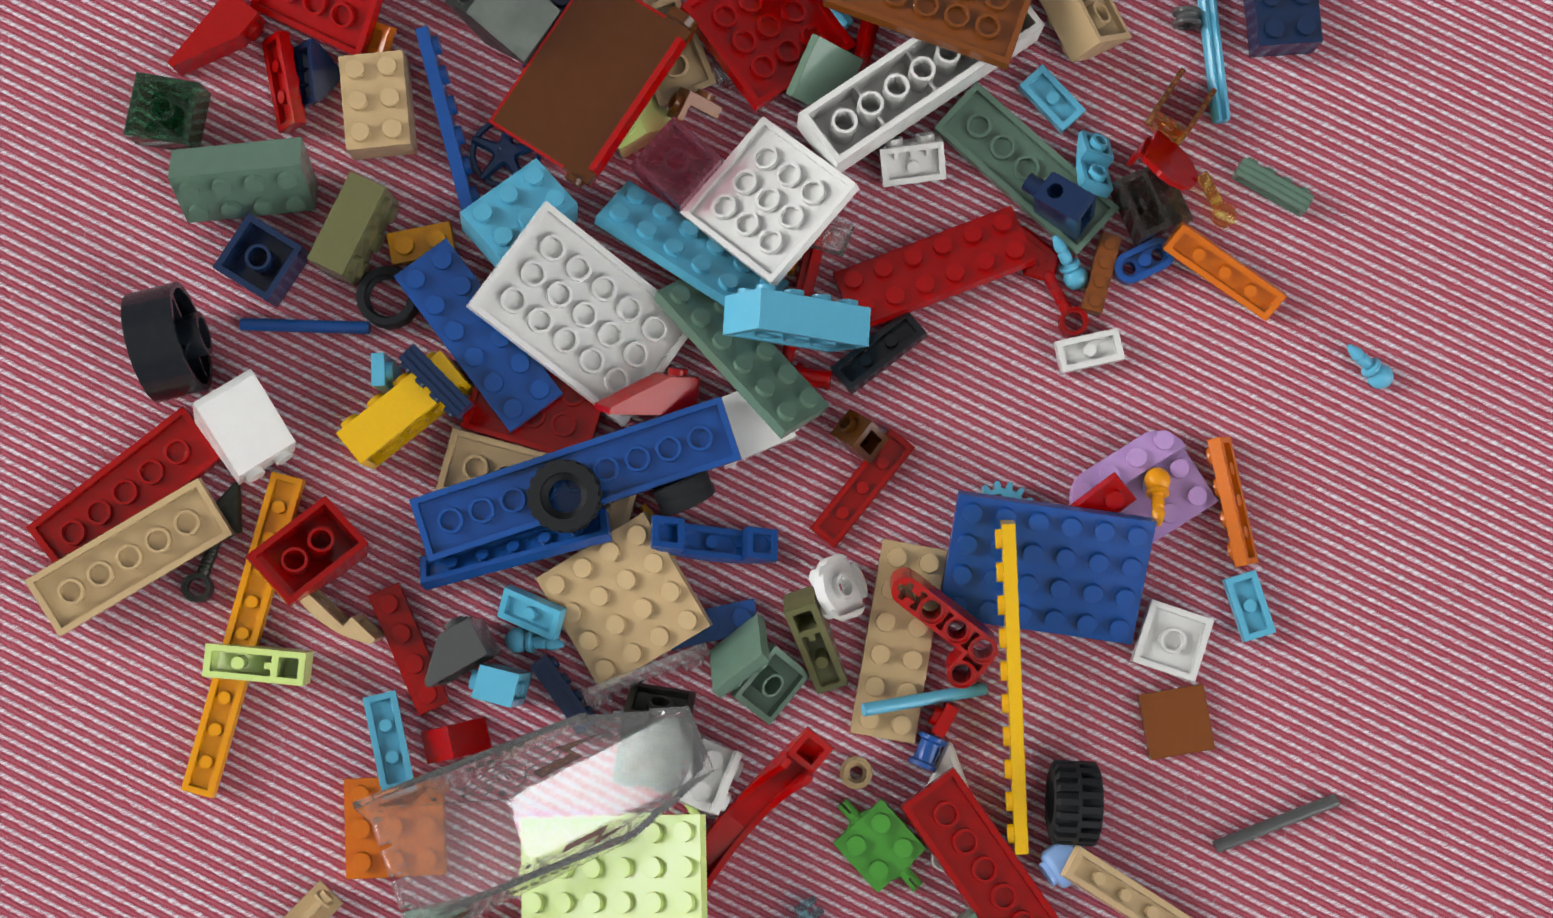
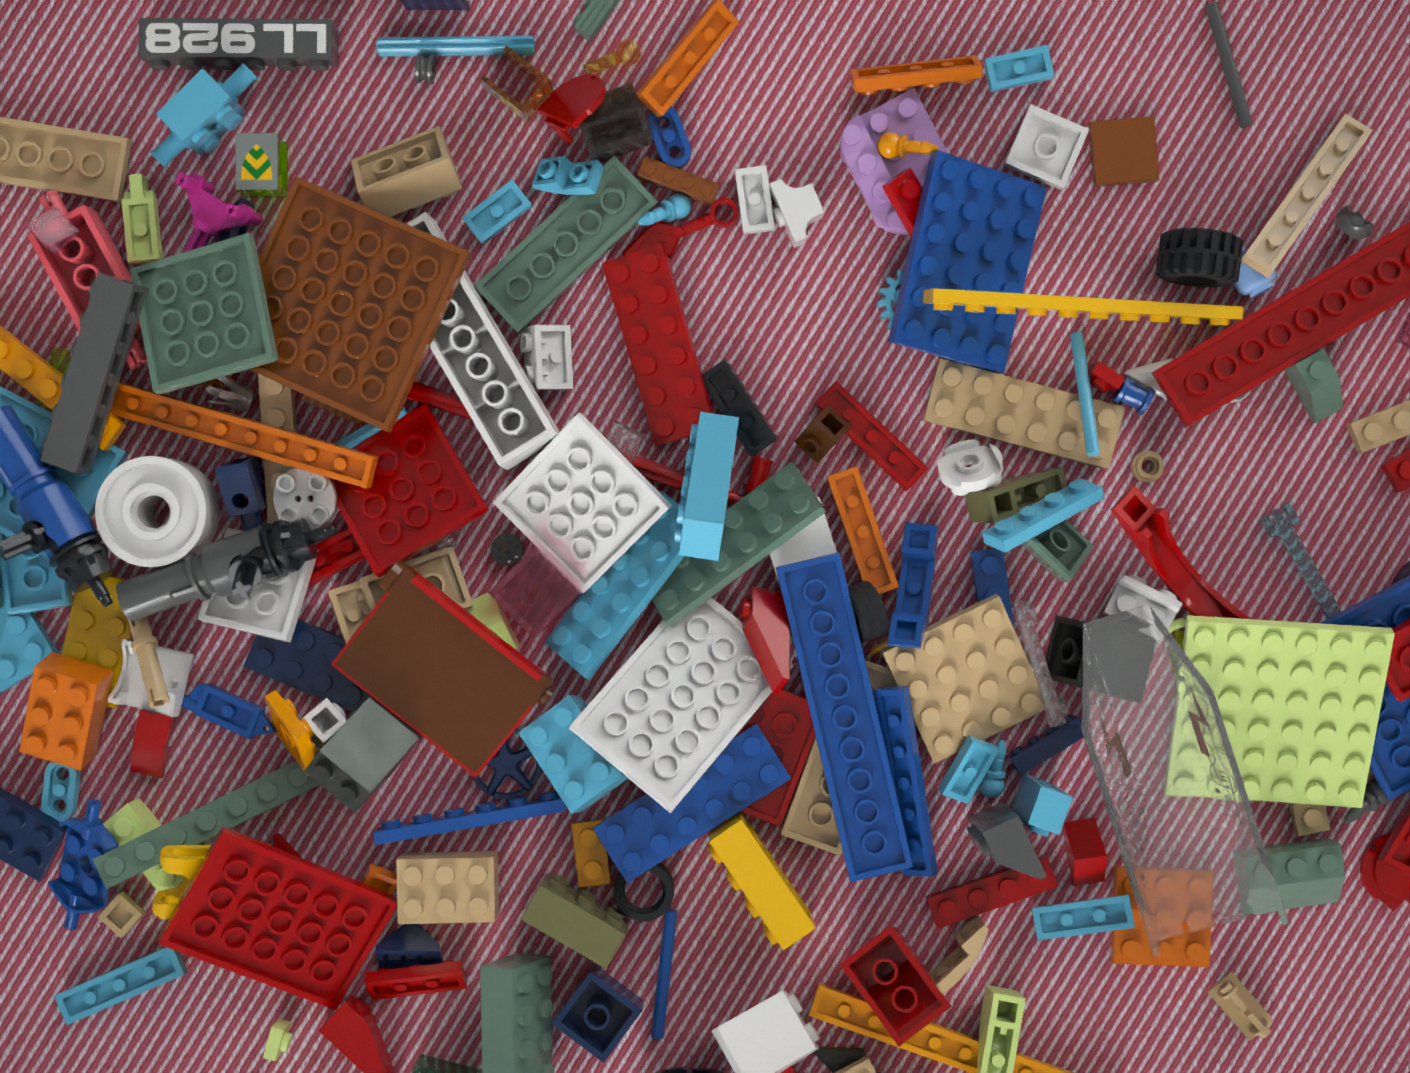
camera: 80 degrees left, 5 degrees up
(383, 372) = (722, 897): medium azure plate -> none
(435, 380) = (742, 847): dark blue piece -> none
(539, 496) = (884, 742): black tyre -> none
(701, 101) = (469, 578): dark orange bracket -> none
(718, 136) = (507, 549): none -> pearl dark grey tile
(739, 656) = (1032, 571): sand green tile -> none
(765, 486) = (862, 529): none -> orange plate
(796, 664) = (1042, 515): none -> medium azure plate
(821, 70) = (455, 438): sand green tile -> none
(879, 845) = (1218, 449): bright green plate -> none
(939, 620) = (1013, 372): red beam -> none
(1061, 203) = (618, 203): dark blue torso -> none
(1083, 392) = (795, 209): none -> white brick

